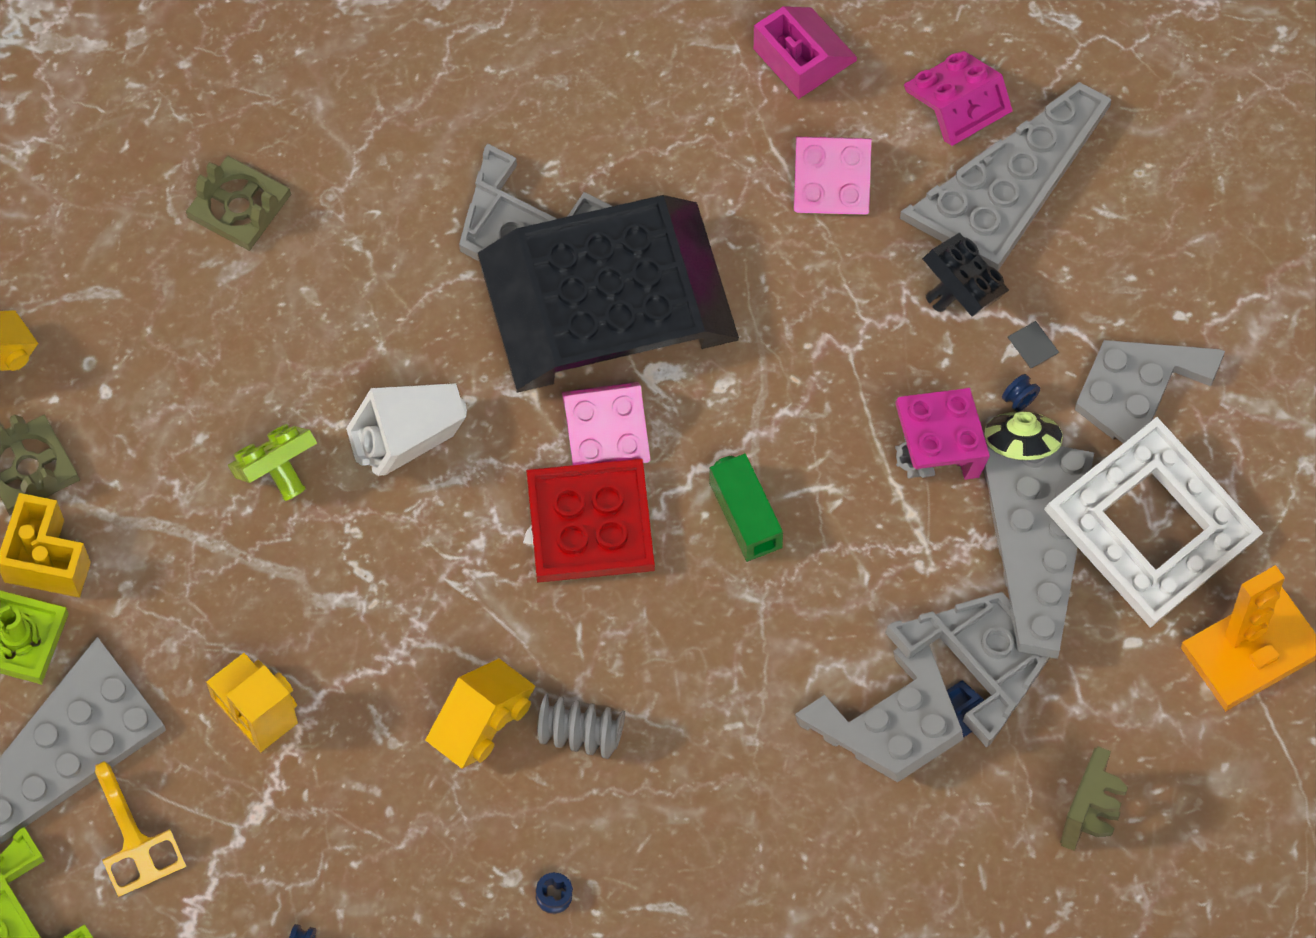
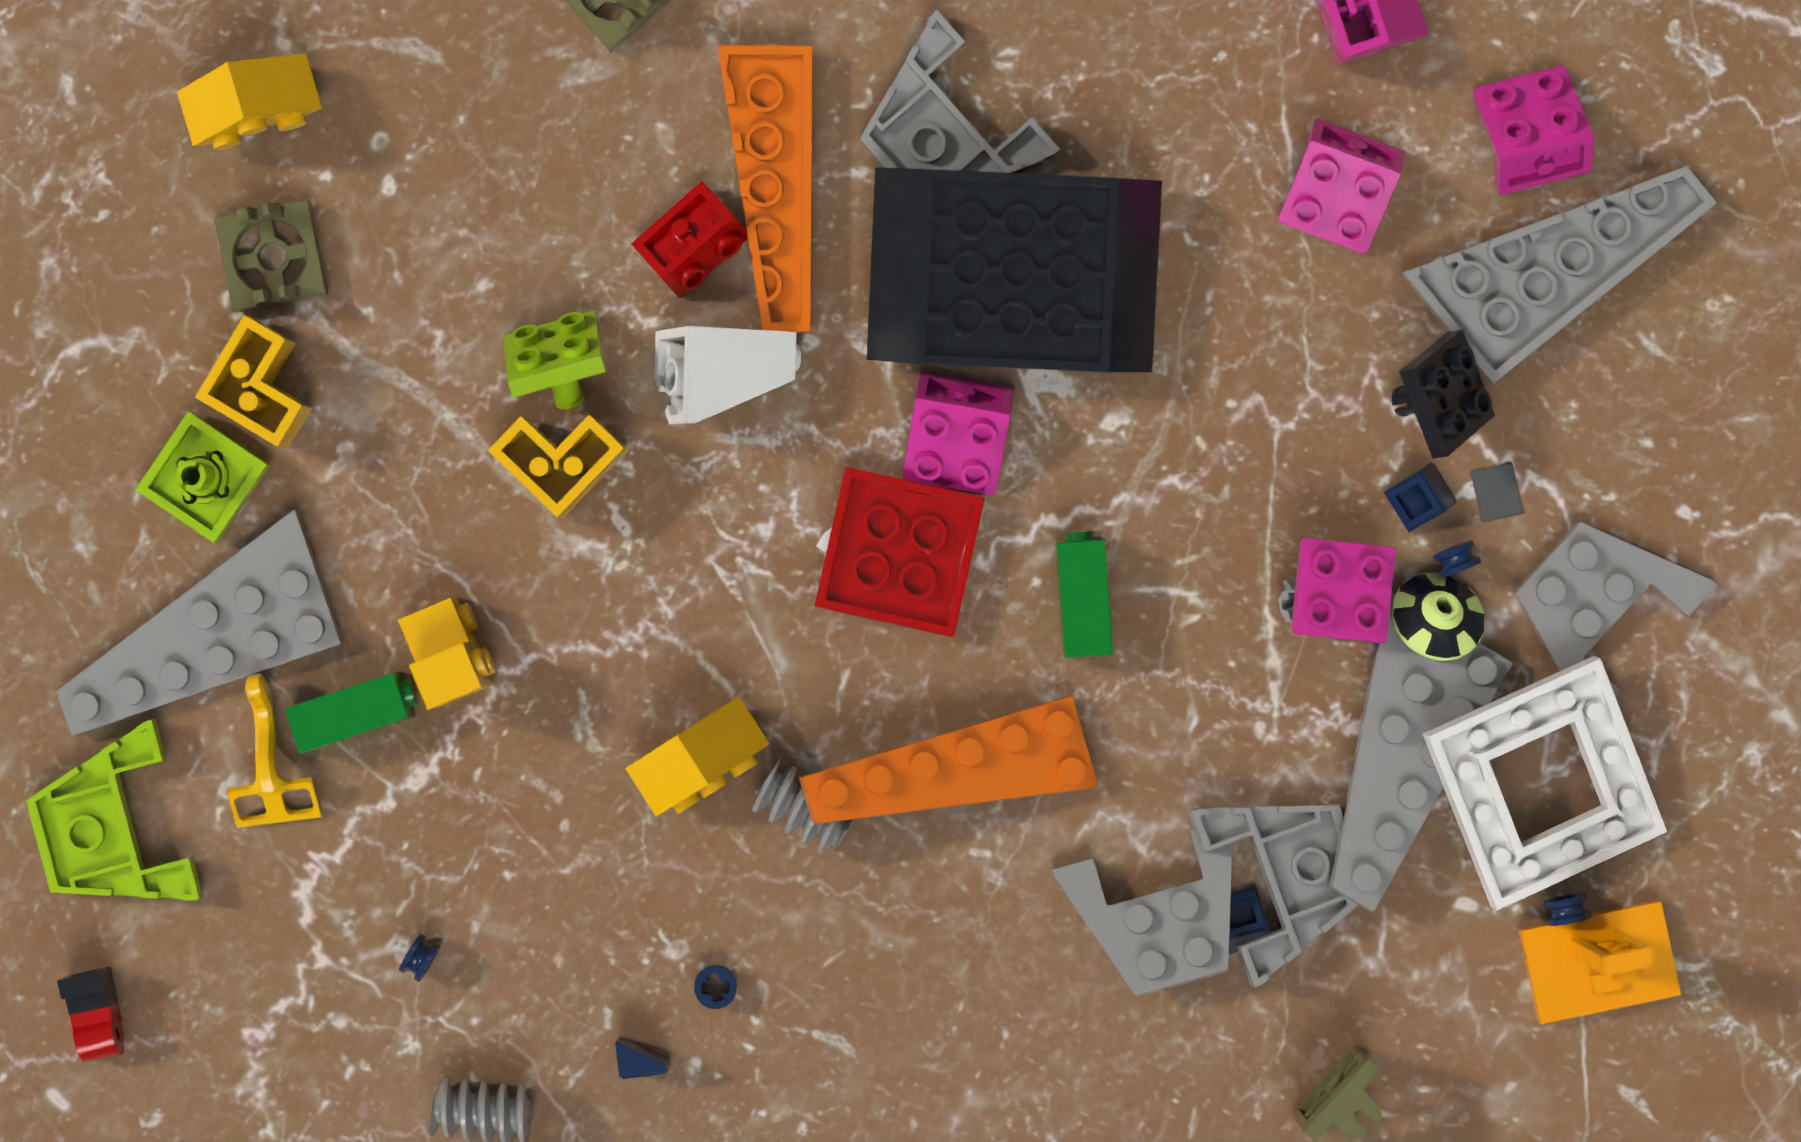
camera: 15 degrees right, 25 degrees up
(188, 770) = (352, 711): none -> green brick
(302, 538) = (561, 473): none -> yellow brick
(354, 352) = (691, 240): none -> red bracket
(395, 272) = (773, 147): none -> orange wing
(718, 642) = (989, 761): none -> orange wing
(976, 363) = (1420, 497): none -> dark blue slope
(1210, 612) = (1567, 909): none -> dark blue bush

